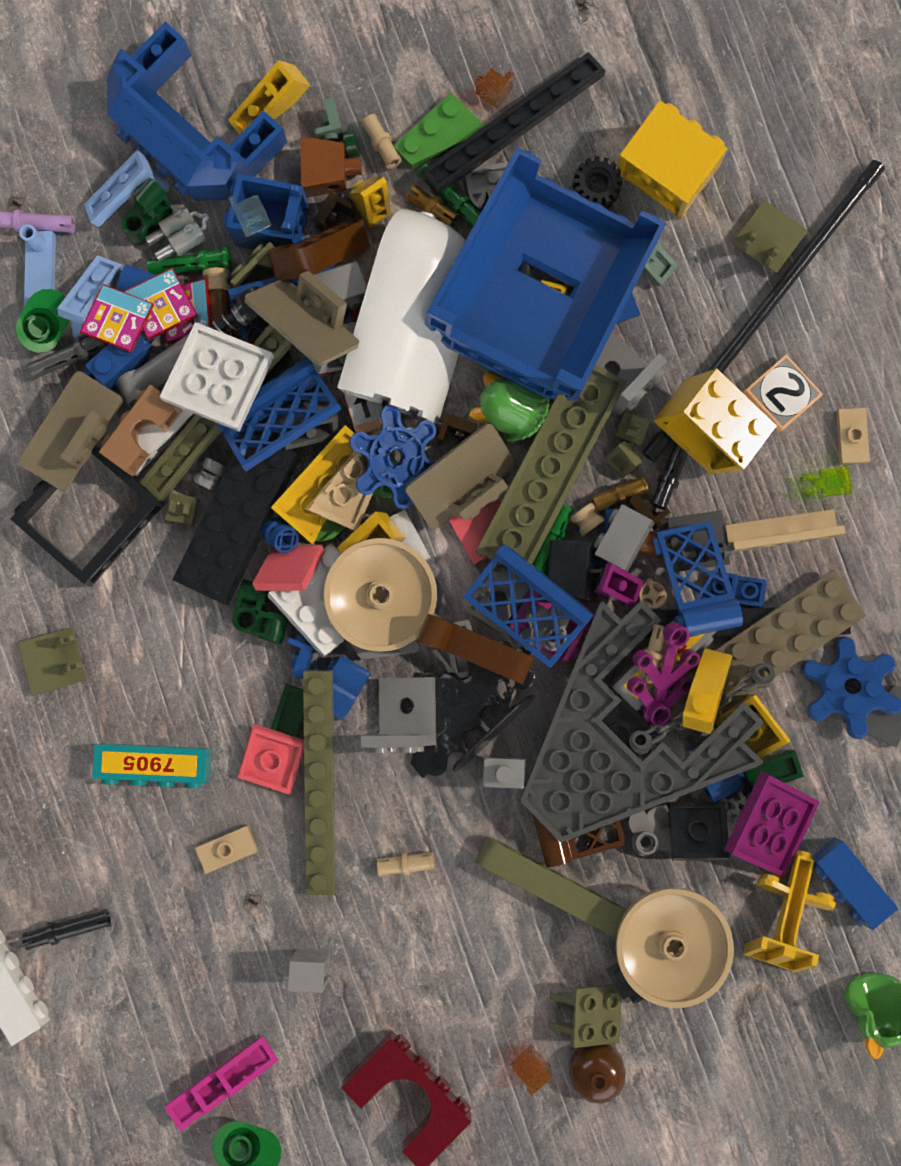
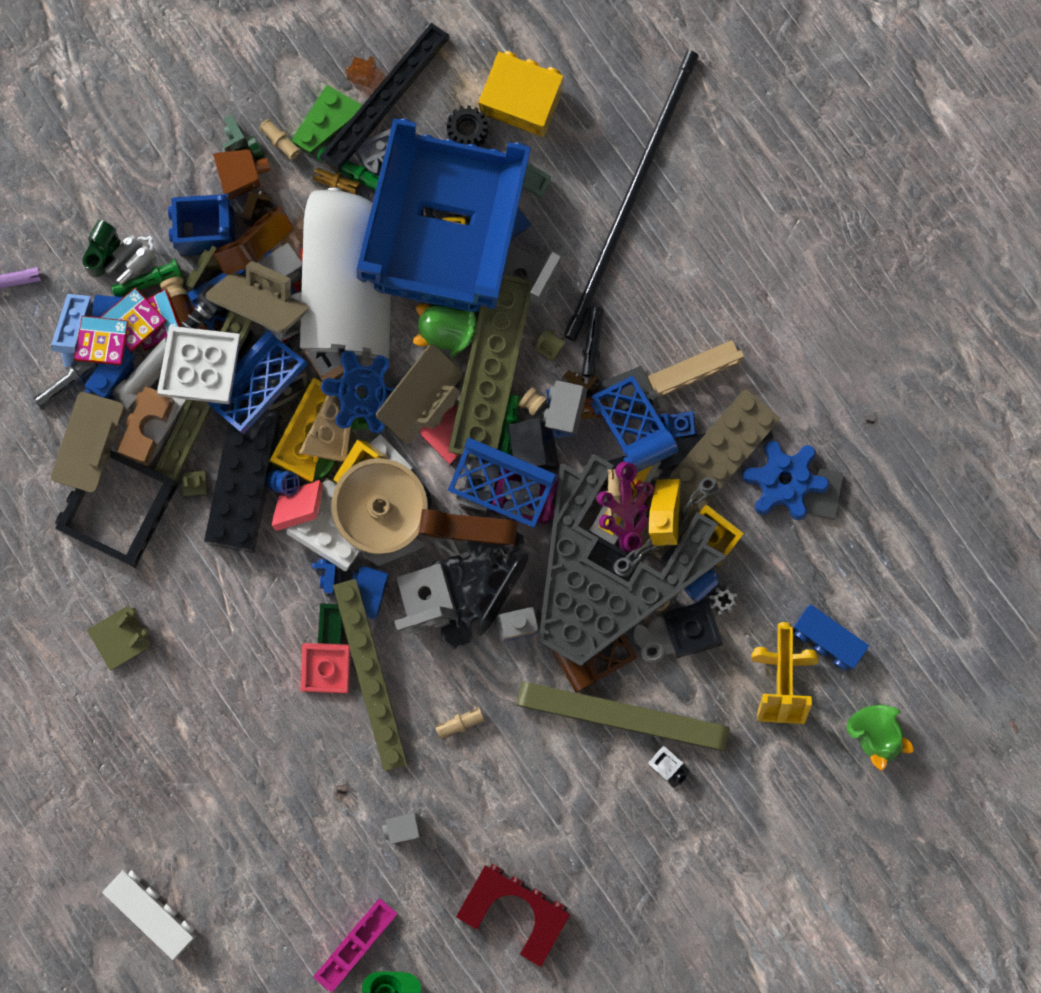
camera: 20 degrees left, 5 degrees down
(39, 260) = (21, 319): light blue piece -> none
(39, 324) = (37, 359): green piece -> none
(55, 932) = (191, 855): black pin -> none
(120, 188) = (73, 234): light blue piece -> none
(152, 763) = (226, 698): brick -> none
(169, 140) = (103, 184): blue wedge -> none
(206, 480) = (211, 449): light grey wheel -> none
(226, 849) = (307, 753): tan plate -> none
(250, 215) = (191, 228): clear light blue panel -> none
(266, 624) = (292, 558): dark green piece -> none
(273, 94) = (177, 129): yellow slope -> none
(371, 200) = (285, 189): yellow slope -> none
(459, 427) = (406, 354): dark brown bracket -> none
(532, 1069) = (608, 861): clear orange panel -> none
(595, 1015) = (648, 802): olive plate -> none
(597, 1073) = (664, 850): reddish brown cylinder -> none
(618, 585) = (572, 447): magenta slope -> none
(620, 493) = (554, 373): pearl gold pin -> none
(632, 428) = (550, 318): olive tile -> none
(657, 594) = (603, 445): tan wheel -> none
(674, 947) = (694, 723): tan dish -> none
(714, 422) = (612, 295): yellow container -> none
(769, 237) = (620, 134): olive plate -> none
(772, 825) = (749, 606): magenta plate -> none
(781, 766) = (740, 566): dark green tile -> none
(783, 393) = (665, 257): slope -> none
(830, 481) = (724, 318): clear neon green plate -> none
(852, 436) = (732, 277): tan plate -> none

